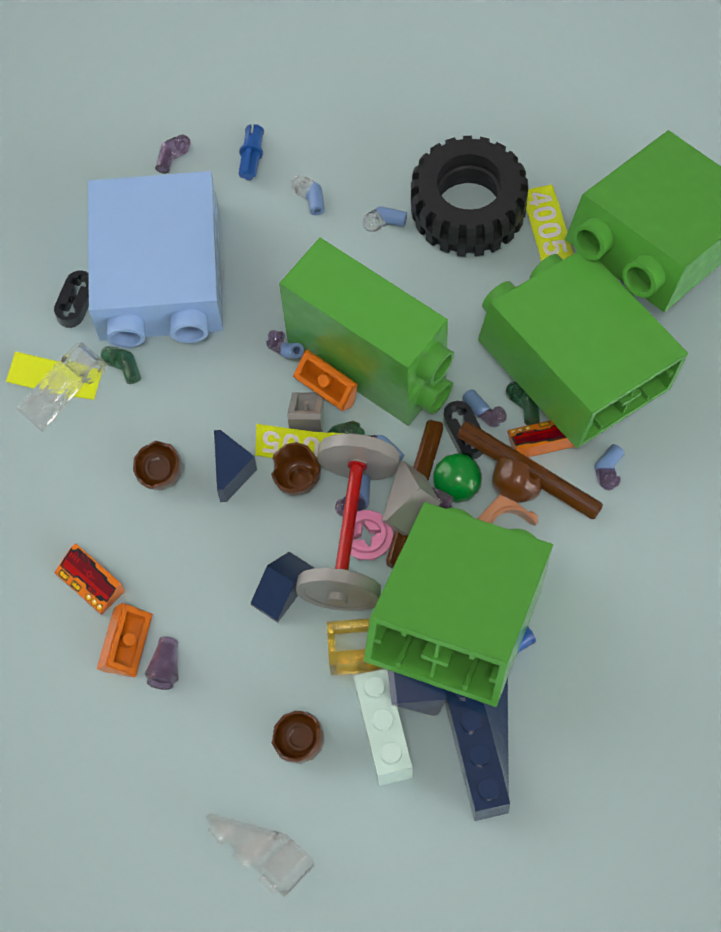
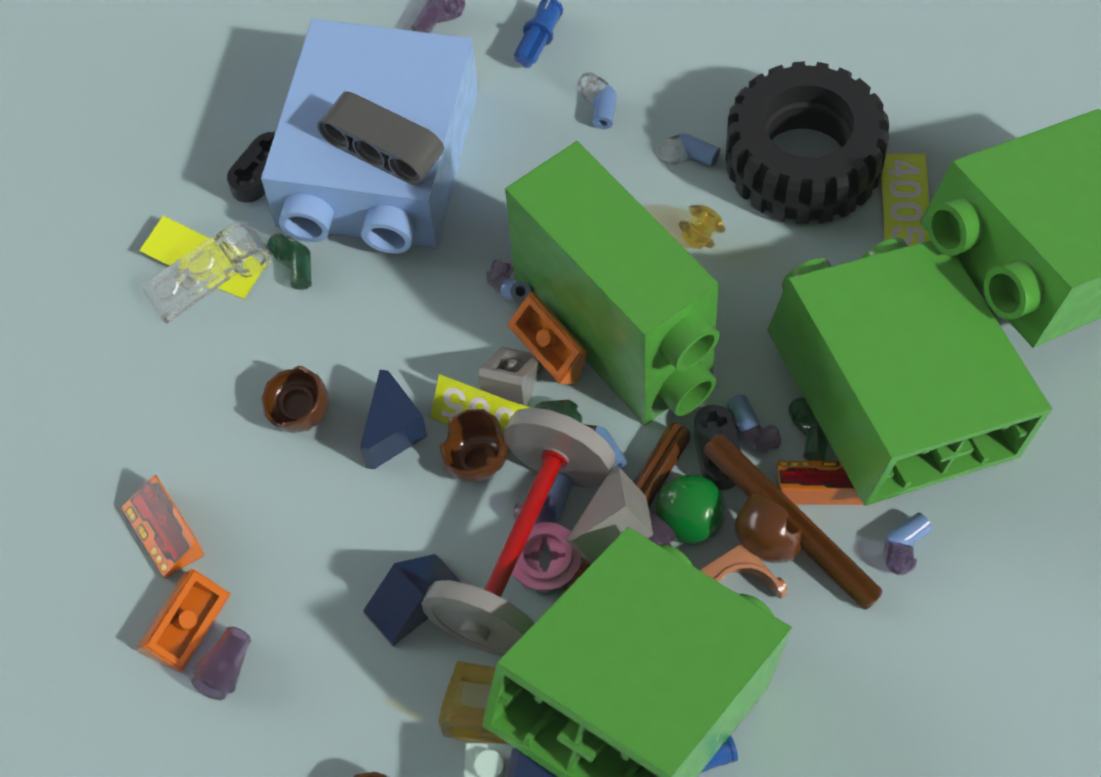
camera: 15 degrees right, 5 degrees down
(169, 261) = (381, 137): none -> dark grey beam
(410, 274) = (701, 227): none -> clear yellow wheel

